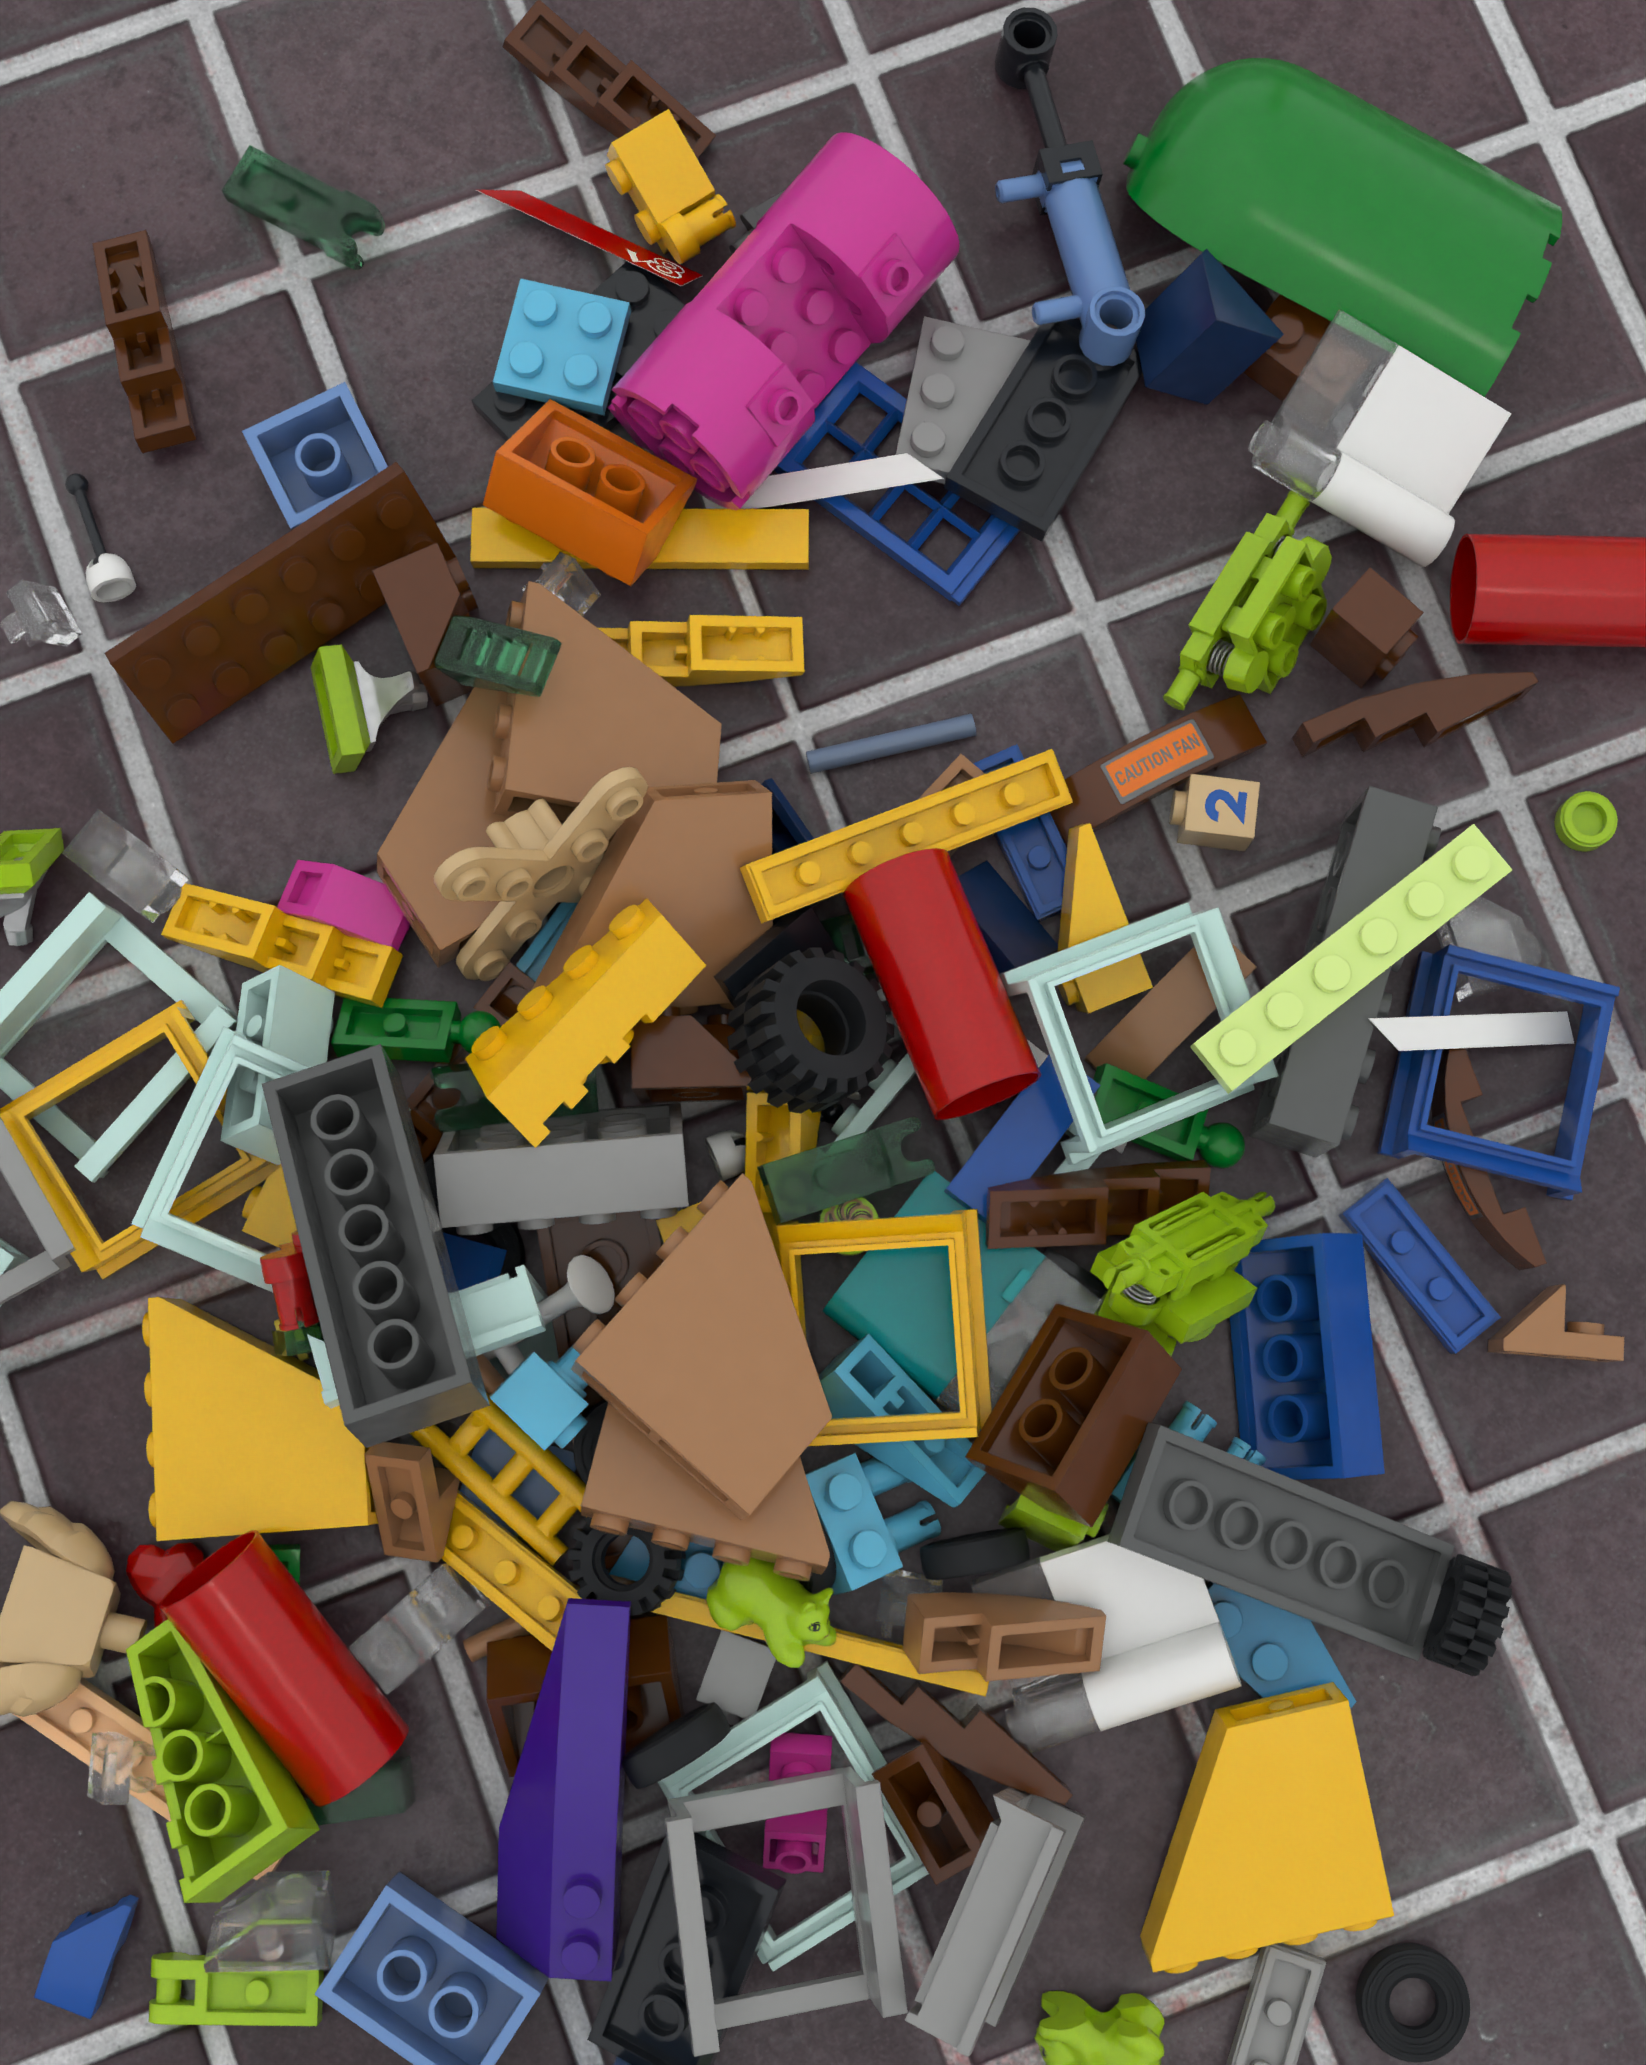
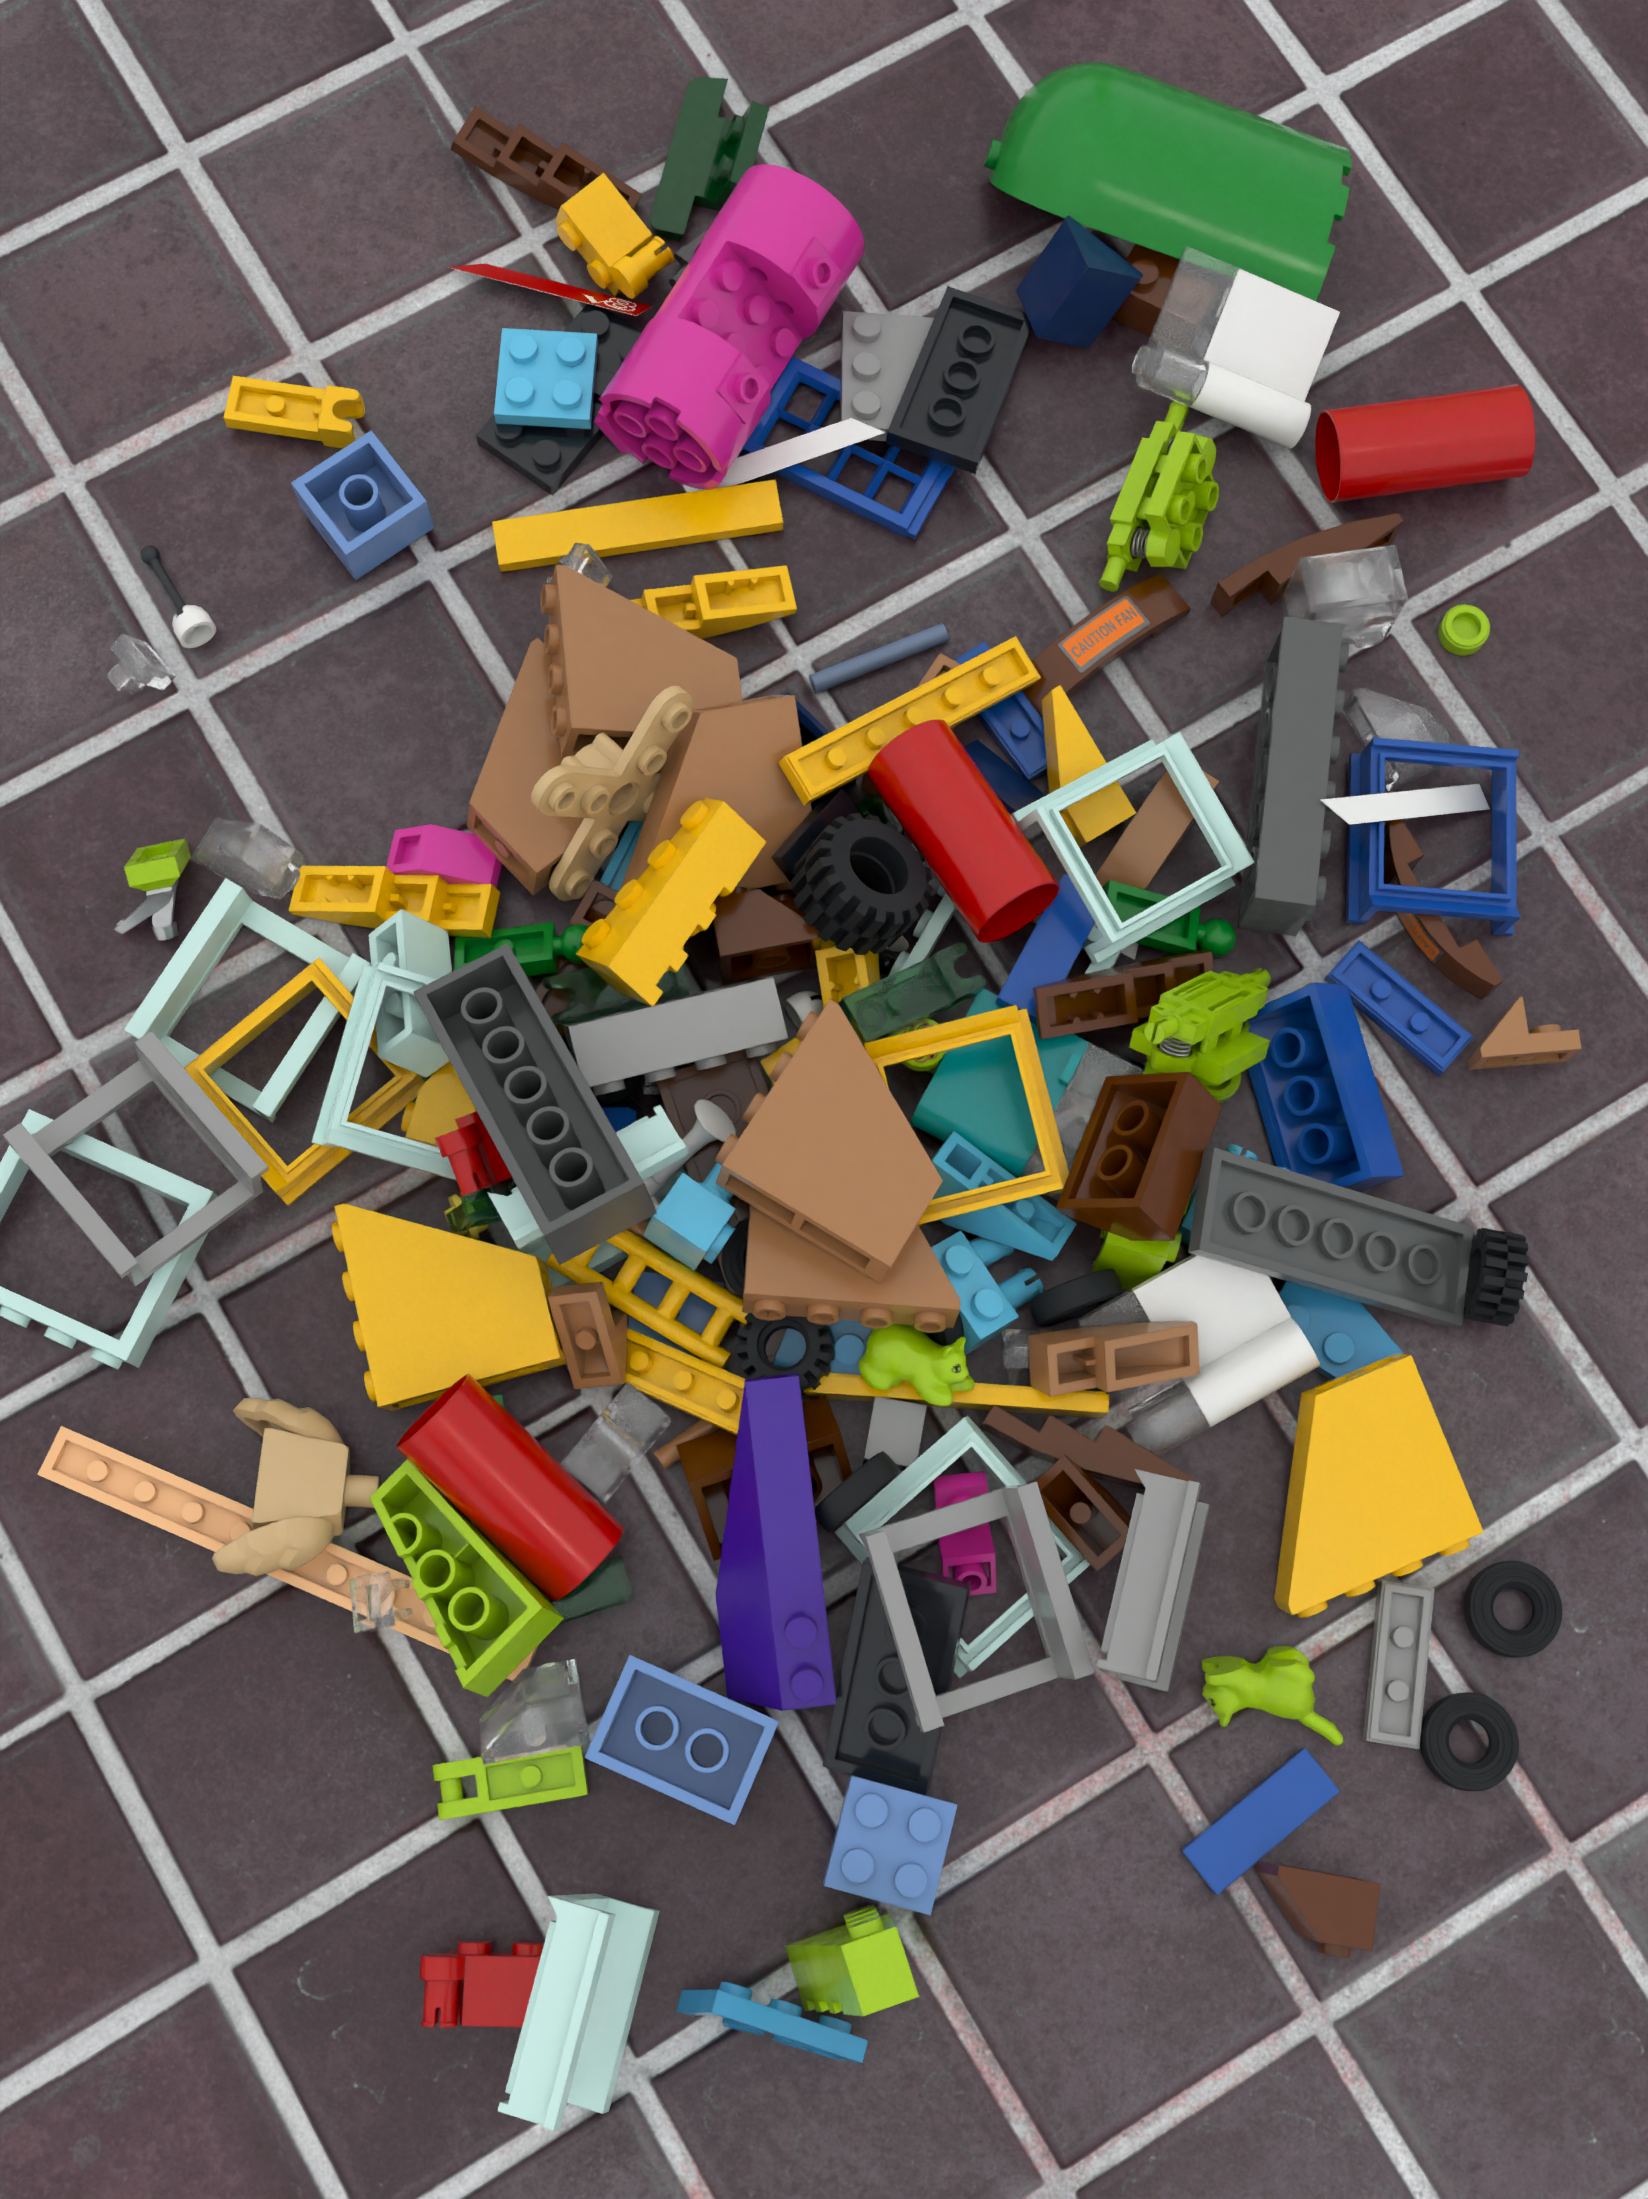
camera: 15 degrees left, 5 degrees down
(84, 1957) = (373, 1777): blue slope -> none
(144, 341) = (188, 430): reddish brown slope -> none
(157, 1570) = (377, 1441): red rock -> none
(267, 337) = (294, 410): none -> yellow plate
(274, 605) = (347, 620): reddish brown plate -> none
(303, 205) = (306, 300): clear green plate -> none
(357, 704) = (423, 694): lime piece -> none
(423, 599) = (477, 613): reddish brown slope -> none
(491, 656) = (539, 625): clear green slope -> none
(587, 491) = (589, 490): orange slope -> none
(798, 99) = (704, 156): none -> dark green plate
(1068, 190) = (942, 191): medium blue piece -> none
(1215, 812) = (1160, 668): tan brick -> none
(1350, 958) = (1295, 754): yellowish green plate -> none
(1368, 629) = (1257, 500): reddish brown brick -> none
(1452, 763) = (1351, 589): none -> clear brick

